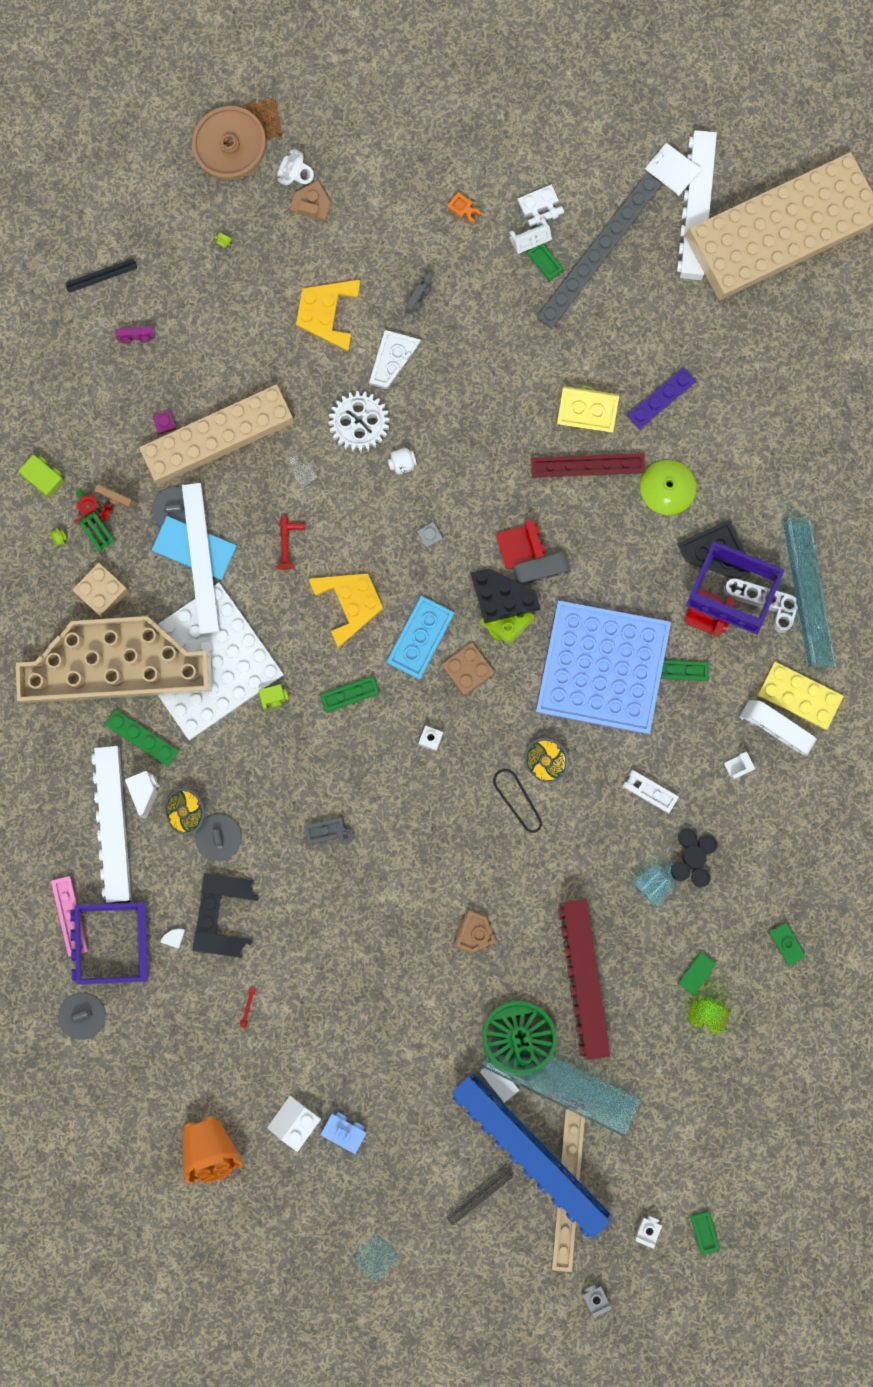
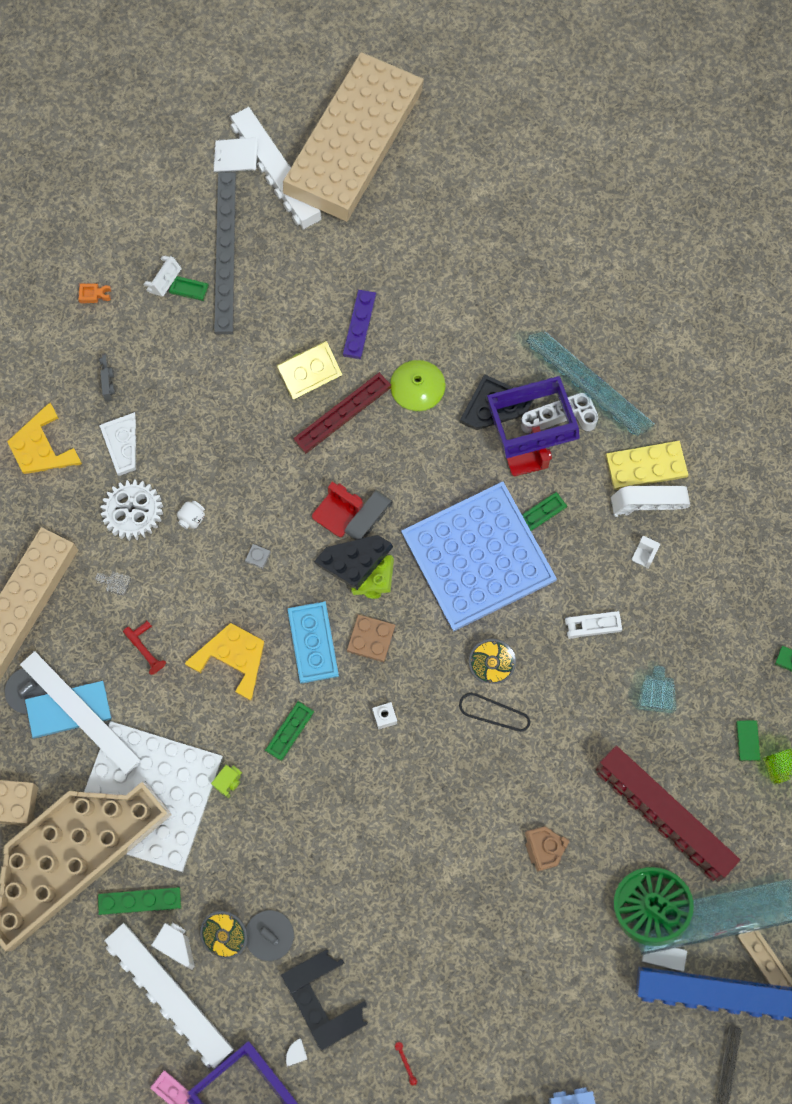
camera: 35 degrees left, 10 degrees down
(328, 831) = (358, 857): dark grey hinge -> none
(538, 201) = (149, 248): white plate -> none
(694, 857) = (670, 649): black piece -> none

